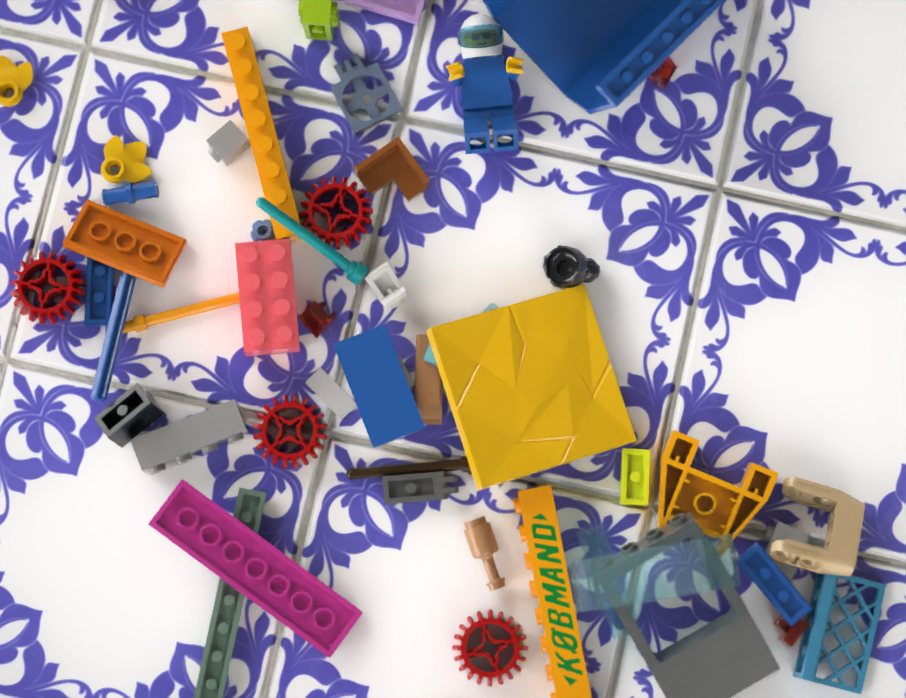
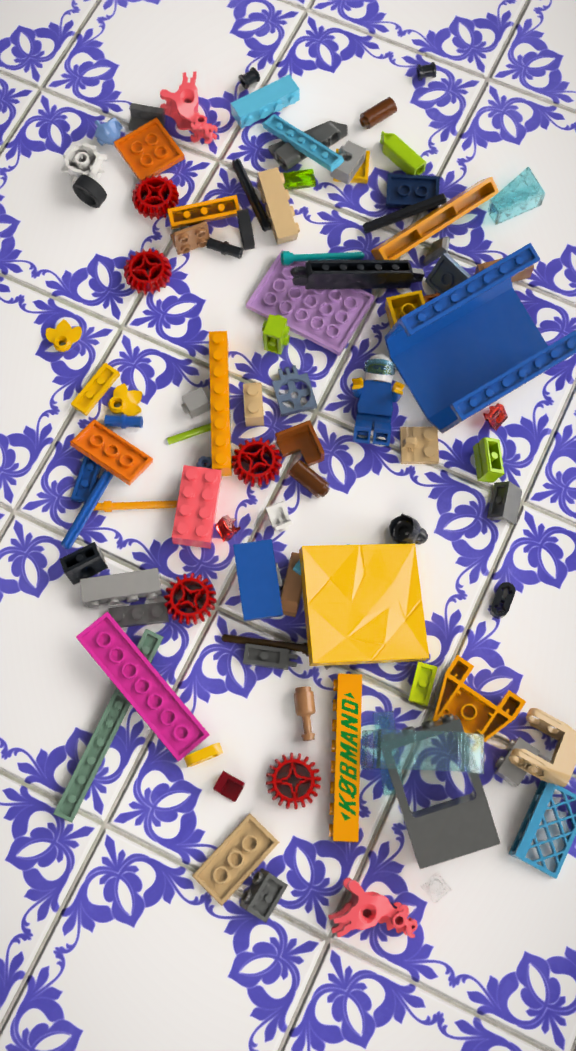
camera: 15 degrees right, 10 degrees down
(46, 299) = (50, 483): red gear -> none
(76, 153) = (95, 389): none -> yellow plate
(224, 468) = (140, 614): none -> flat silver plate
(229, 189) = (188, 434): none -> lime bar
(311, 128) = (253, 404): none -> tan brick
(330, 393) = (224, 581): white sticker -> none
(354, 270) = (259, 501): teal piece -> none
(361, 641) = (203, 755): none -> yellow beam
(405, 674) = (229, 786): none -> dark red panel
(416, 222) = (309, 479): none -> reddish brown brick
(560, 136) = (419, 445): none -> tan hinge
(662, 139) = (488, 460): none -> lime brick
(696, 195) = (505, 502): none -> dark grey panel
(713, 335) = (506, 602): none -> black beam
(773, 584) = (507, 781): blue tile -> none
(790, 633) = (514, 818): clear red tile -> none

